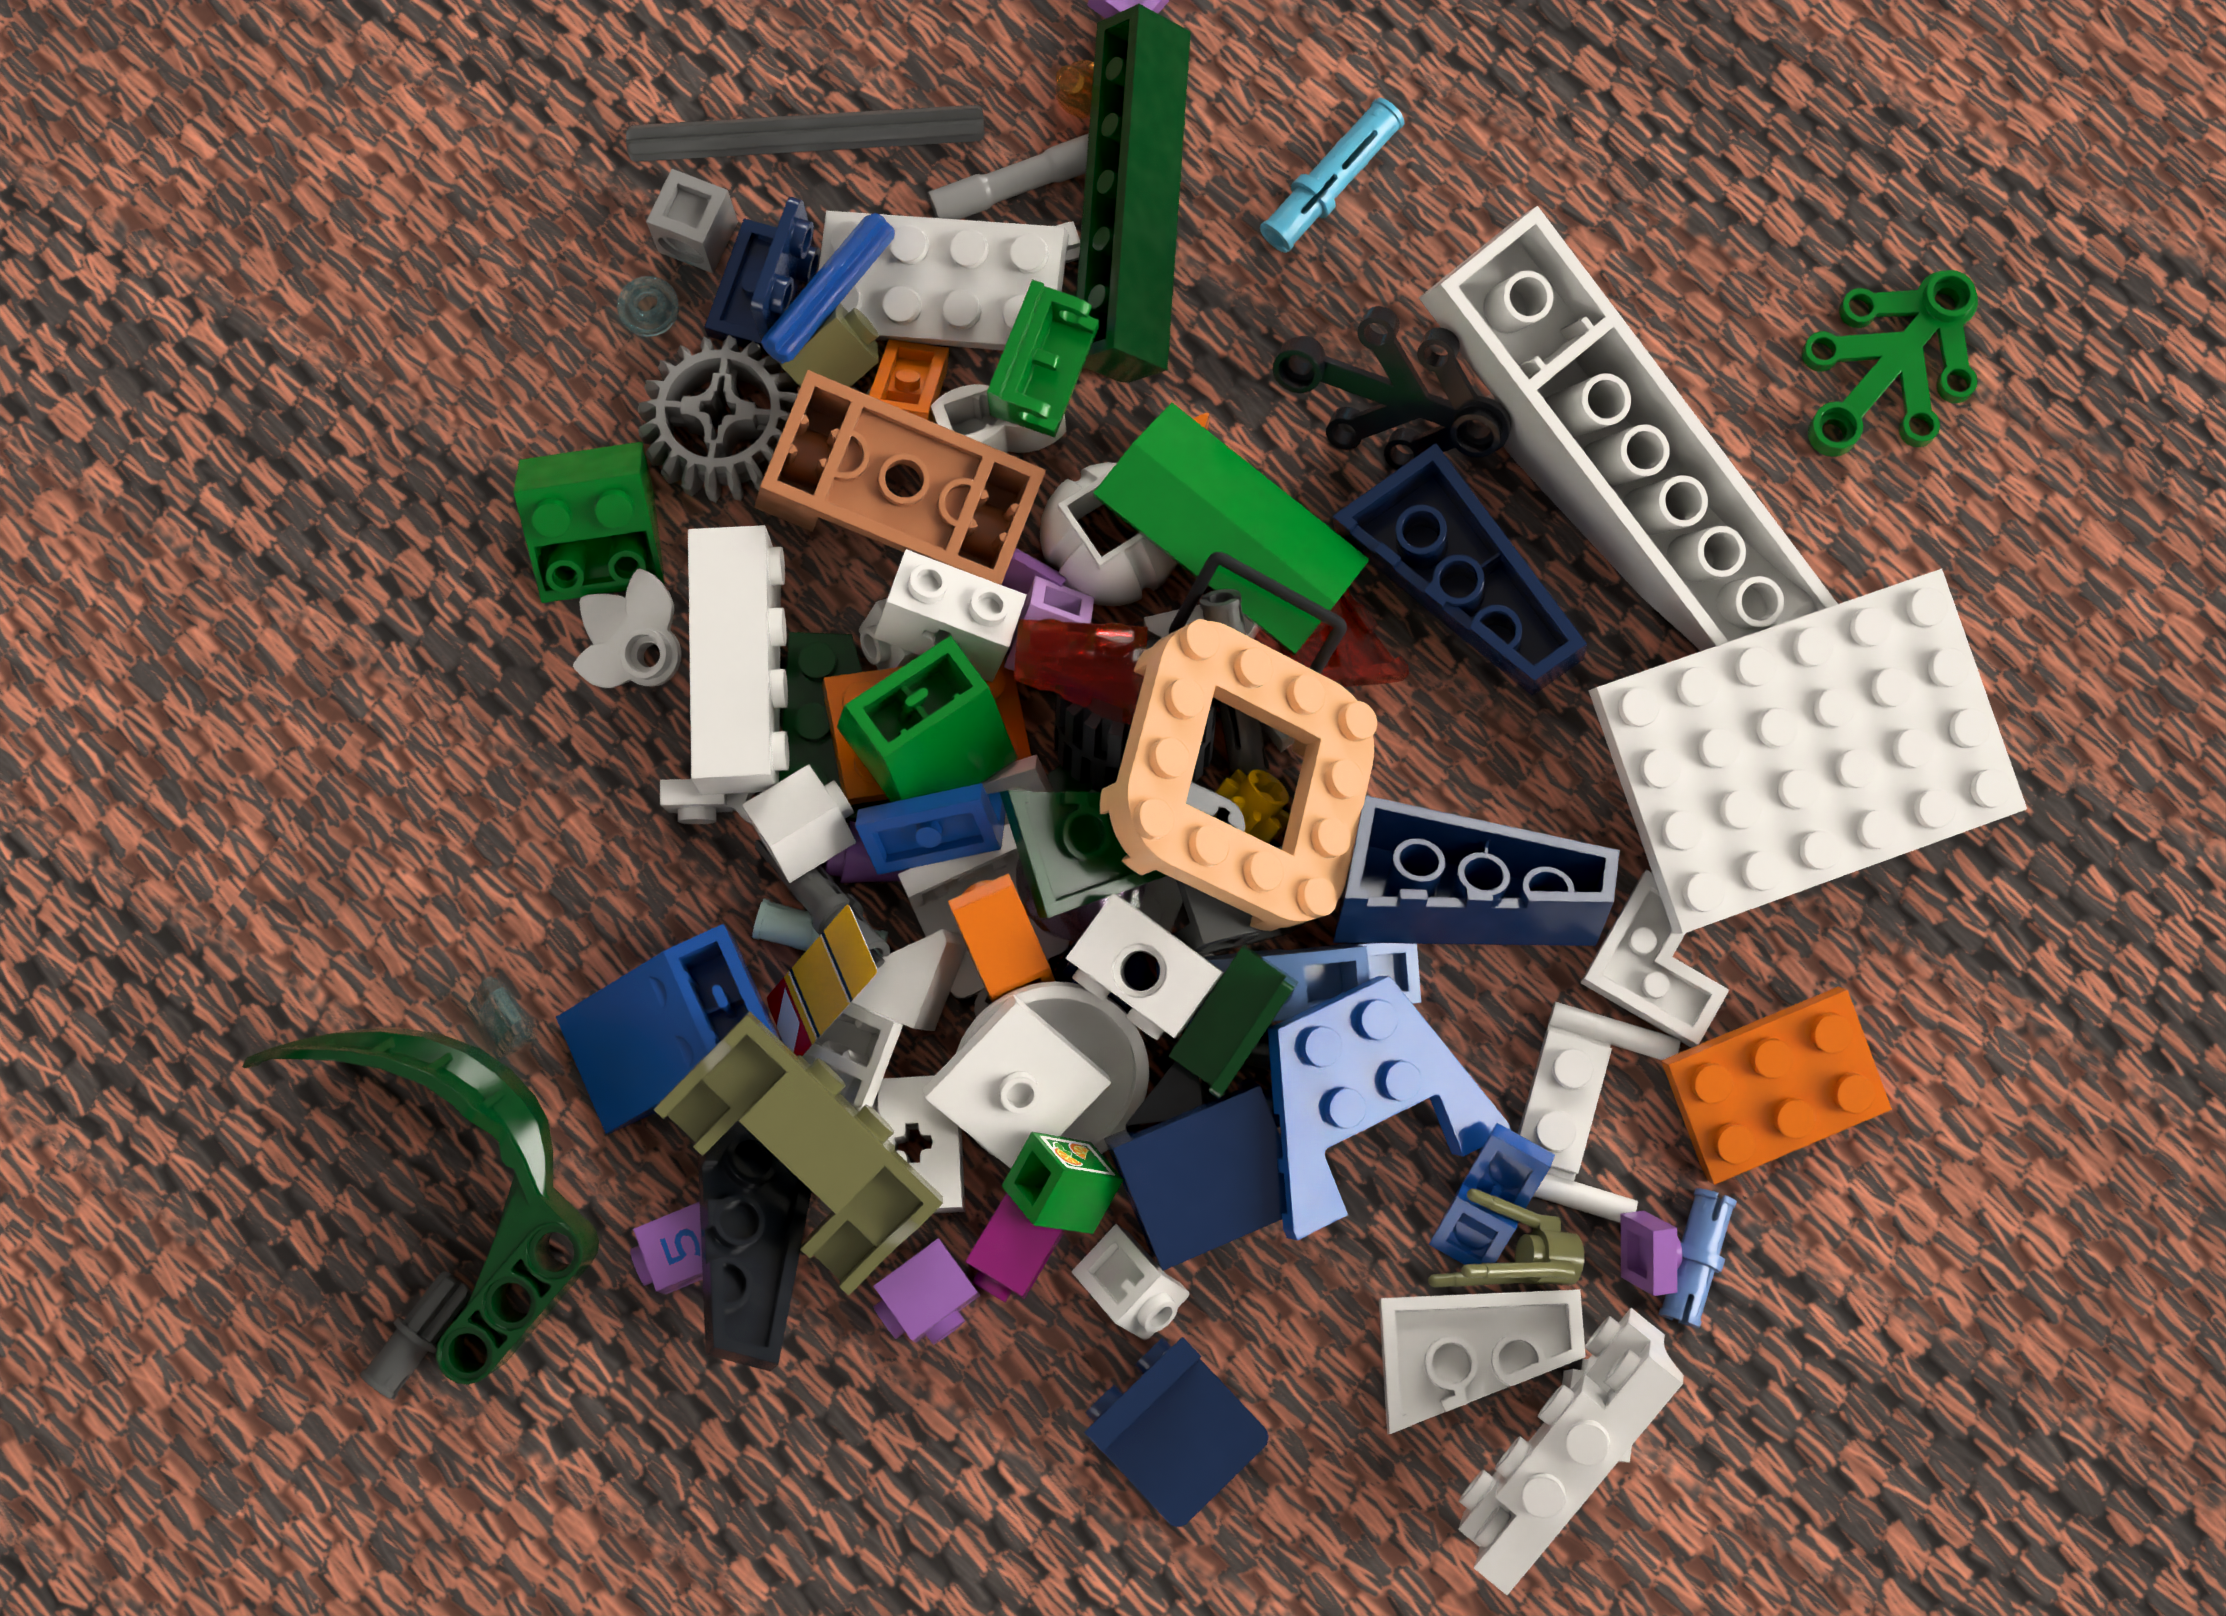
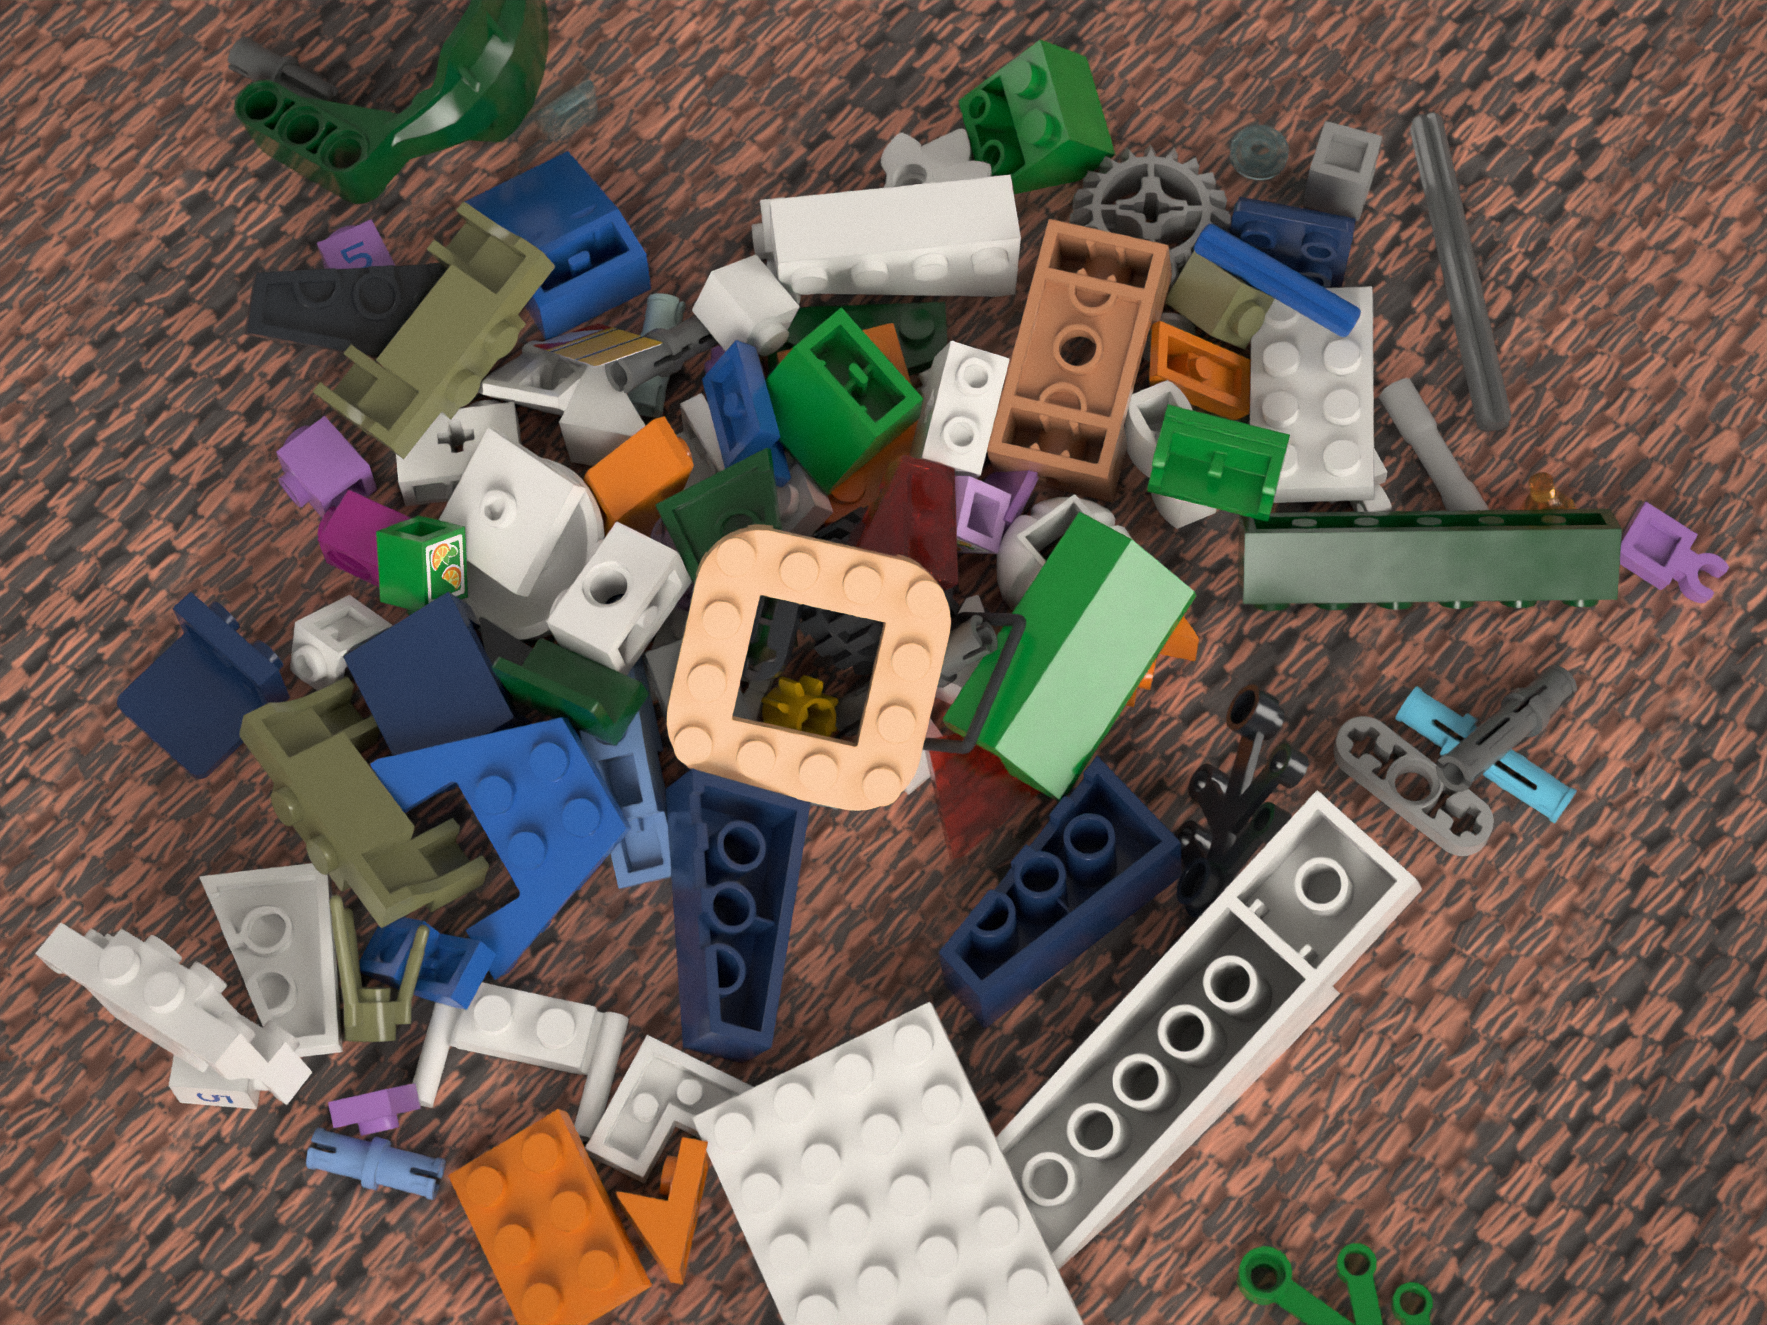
camera: 85 degrees right, 10 degrees down
(1302, 131) = (1521, 715): none -> dark grey pin
(1338, 1272) = (347, 813): none -> olive bracket
(1377, 203) = (1411, 761): none -> light grey beam
(1776, 963) = (670, 1225): none -> orange slope

